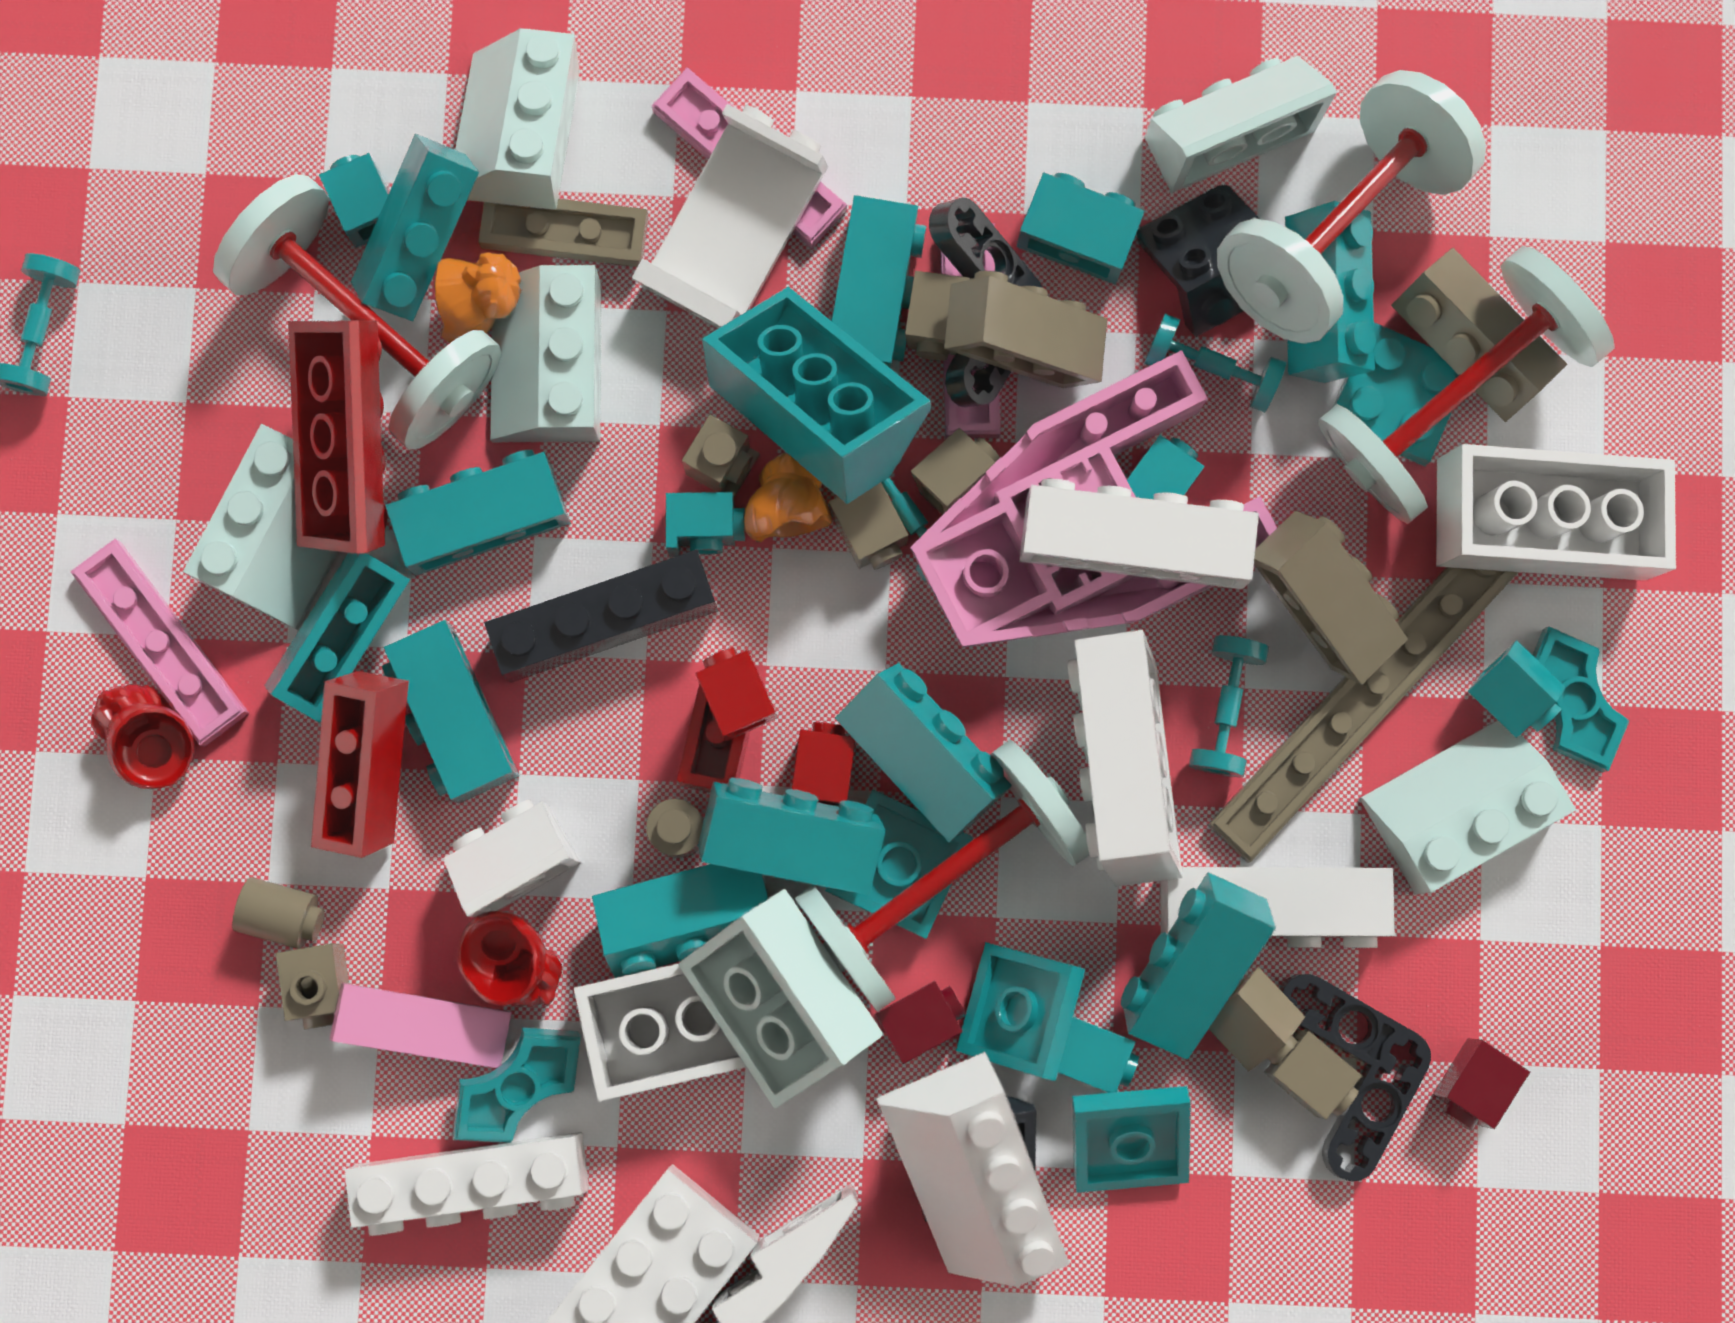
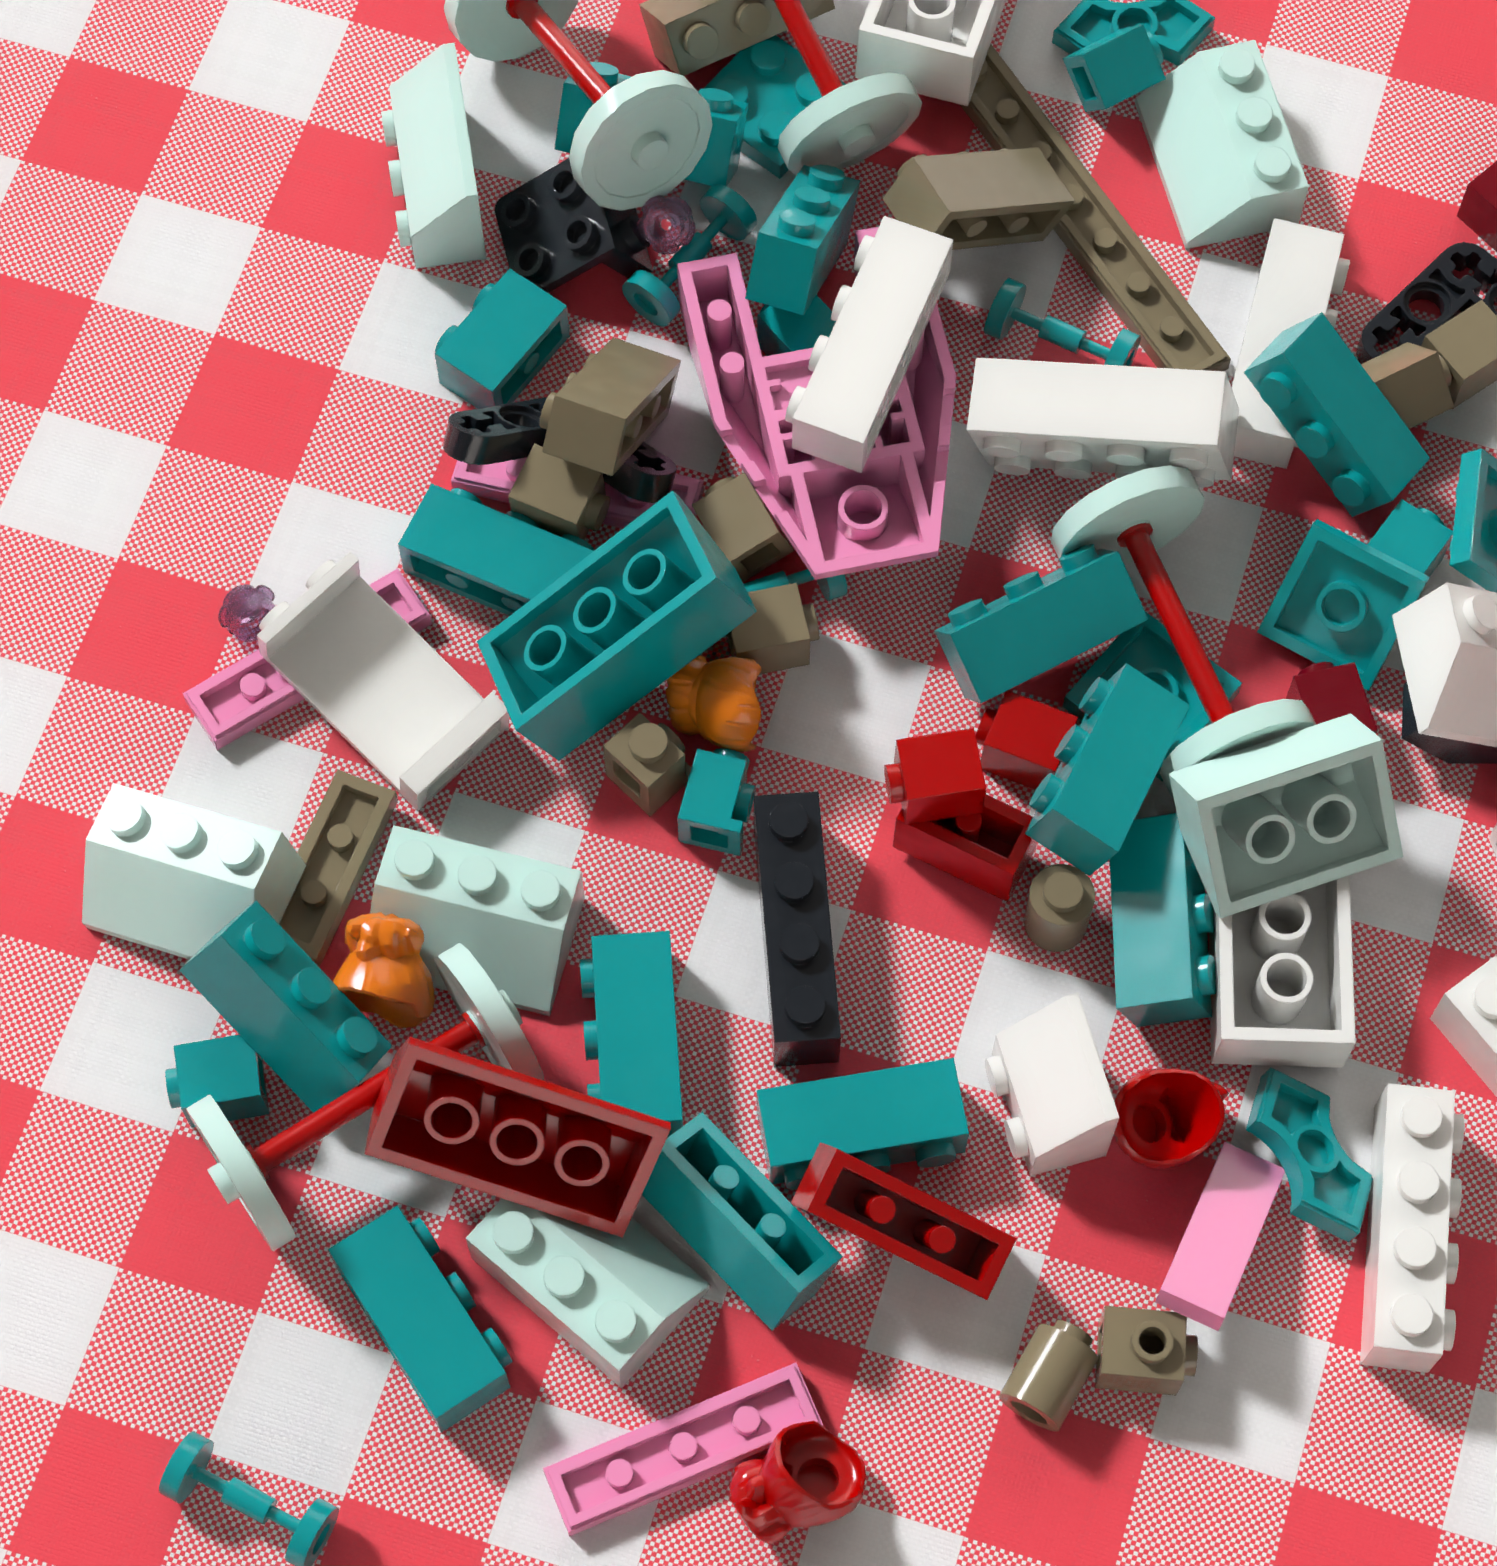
camera: 70 degrees left, 15 degrees down
(207, 411) = (422, 1316): none -> teal brick
(774, 96) = (245, 609): none -> clear purple plate
(1239, 452) = (803, 238): none -> teal brick
(1243, 337) = (681, 220): none -> clear purple plate

